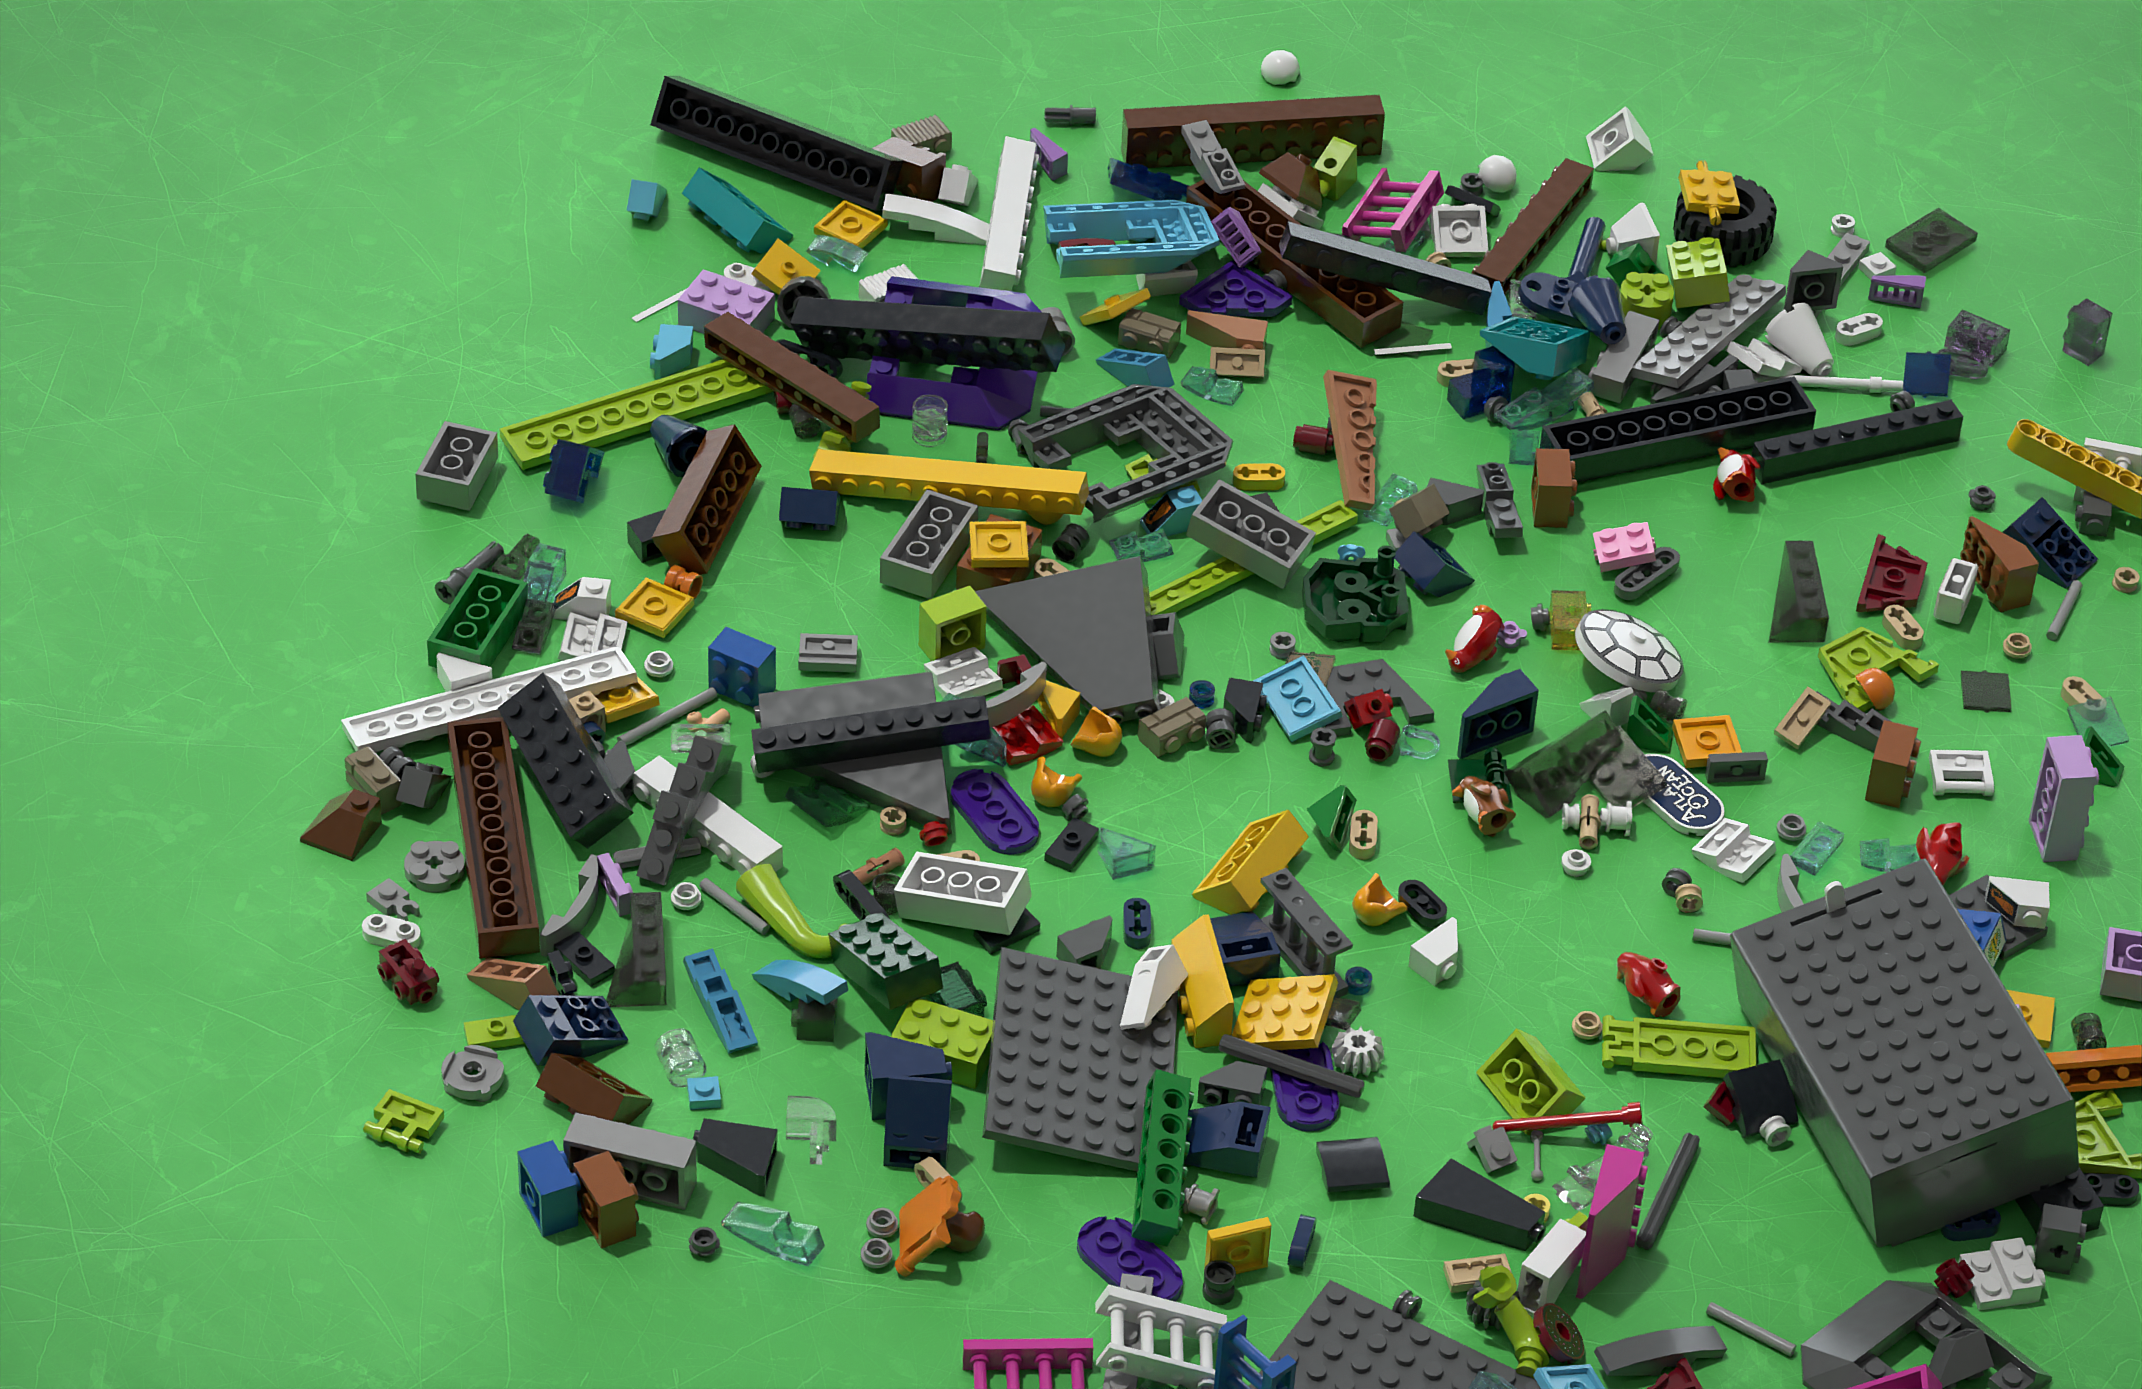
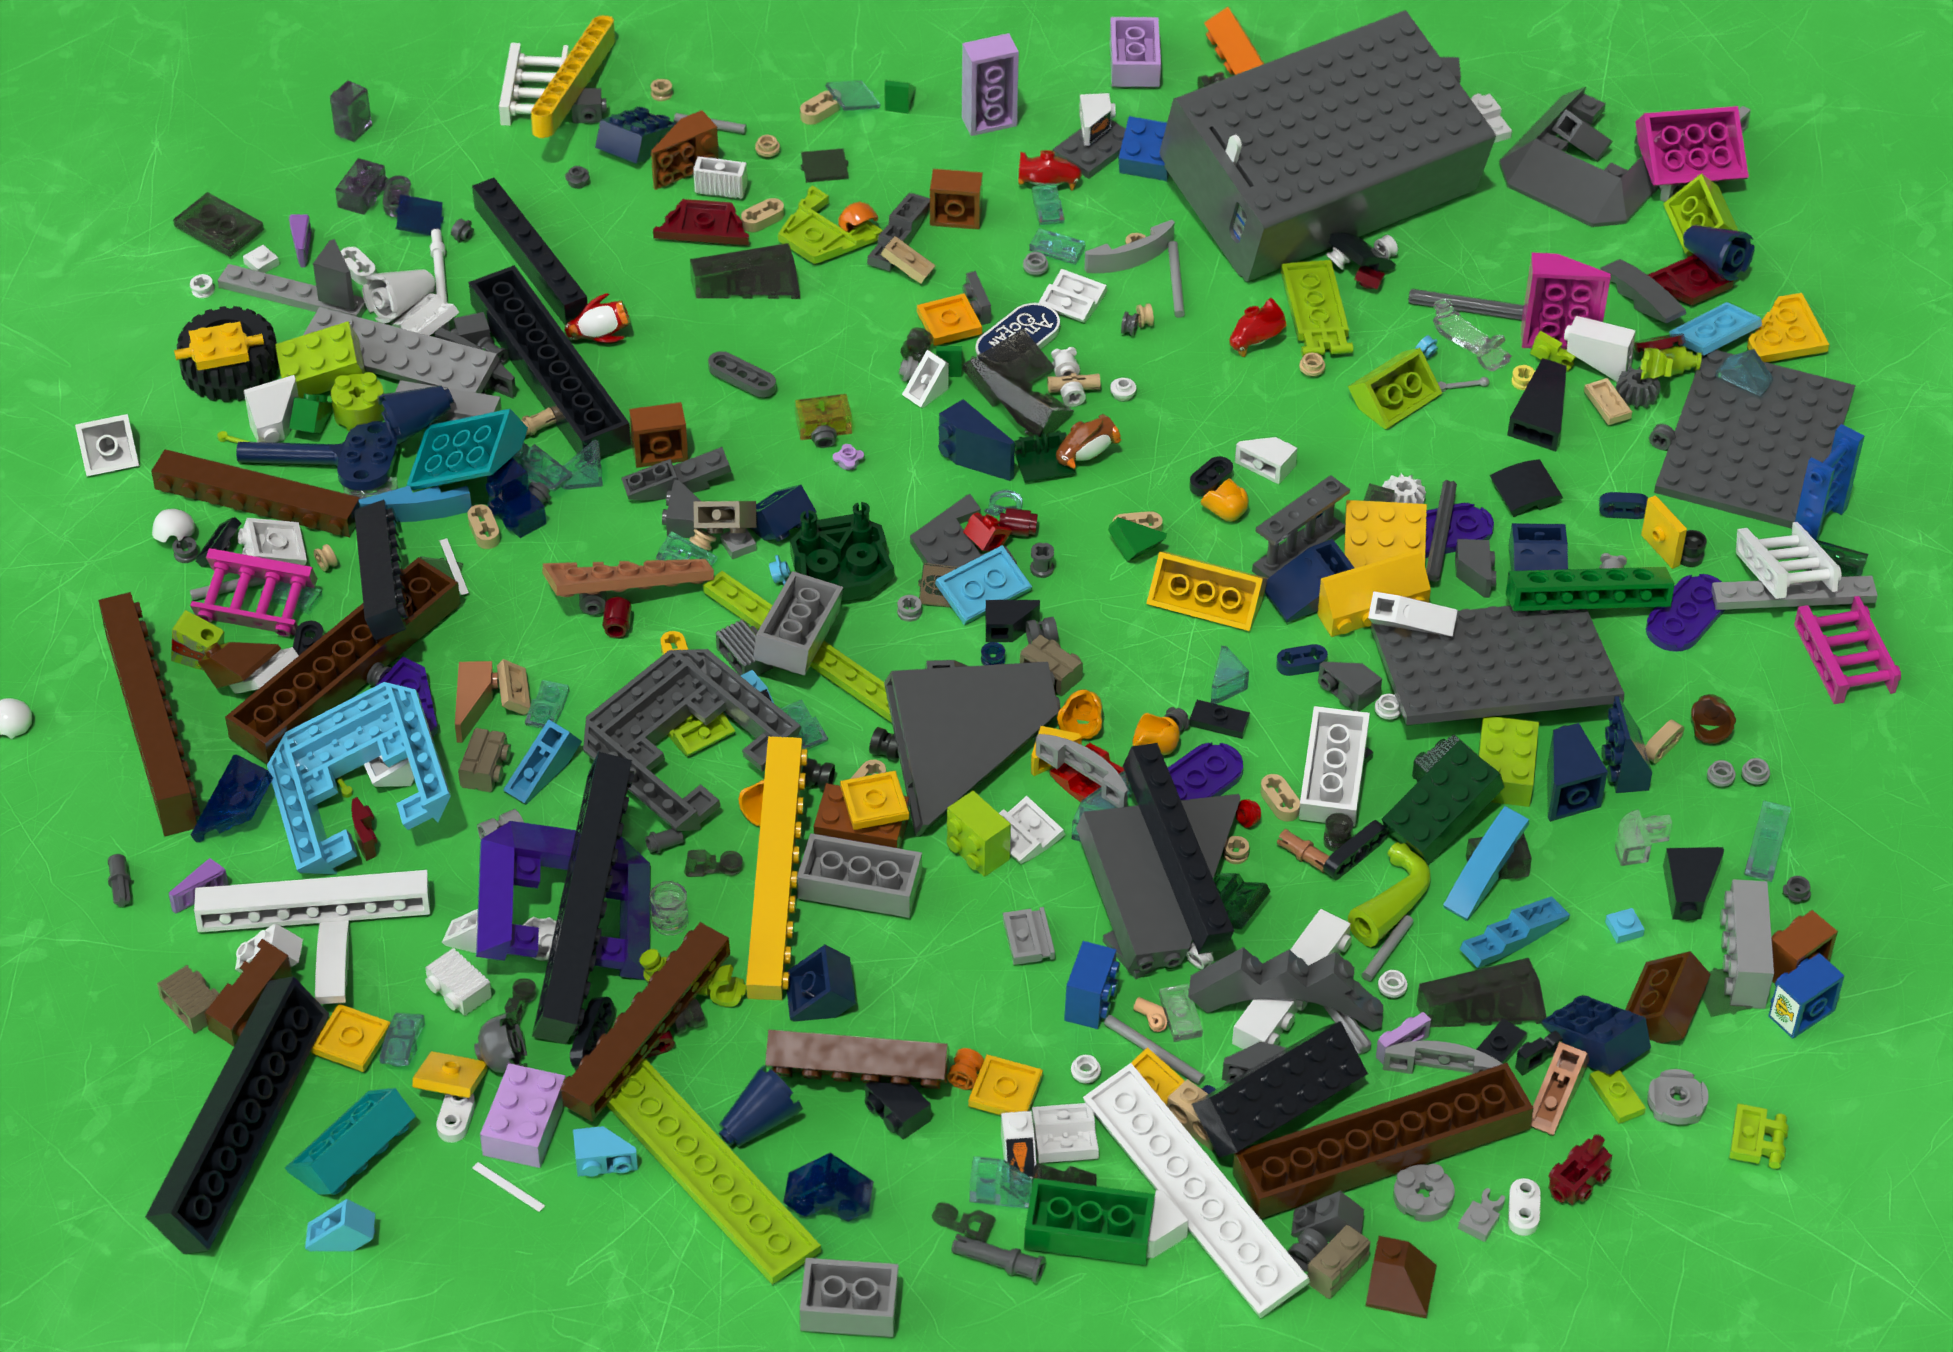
camera: 100 degrees left, 5 degrees up
(680, 1057) = (1602, 940): clear wheel -> none
(926, 1219) = (1718, 730): orange piece -> none
(1011, 668) = (1016, 781): bracket -> none
(1115, 306) = (464, 783): yellow plate -> none
(1210, 159) = (240, 715): light grey slope -> none
(1225, 224) = (321, 696): medium lavender slope -> none
(1475, 639) = (876, 470): red animal -> none
(1493, 1148) = (1470, 404): light grey bracket -> none
(1624, 546) = (716, 388): bright pink plate -> none
(1628, 1115) = (1425, 314): red piece -> none
(1629, 650) = (863, 367): white dish -> none
(1669, 326) = (390, 382): dark grey bush -> none
(1751, 1329) = (1593, 244): light grey bar -> none
(1954, 1278) = (1506, 140): dark red gear -> none
(1961, 765) = (927, 160): white plate -> none

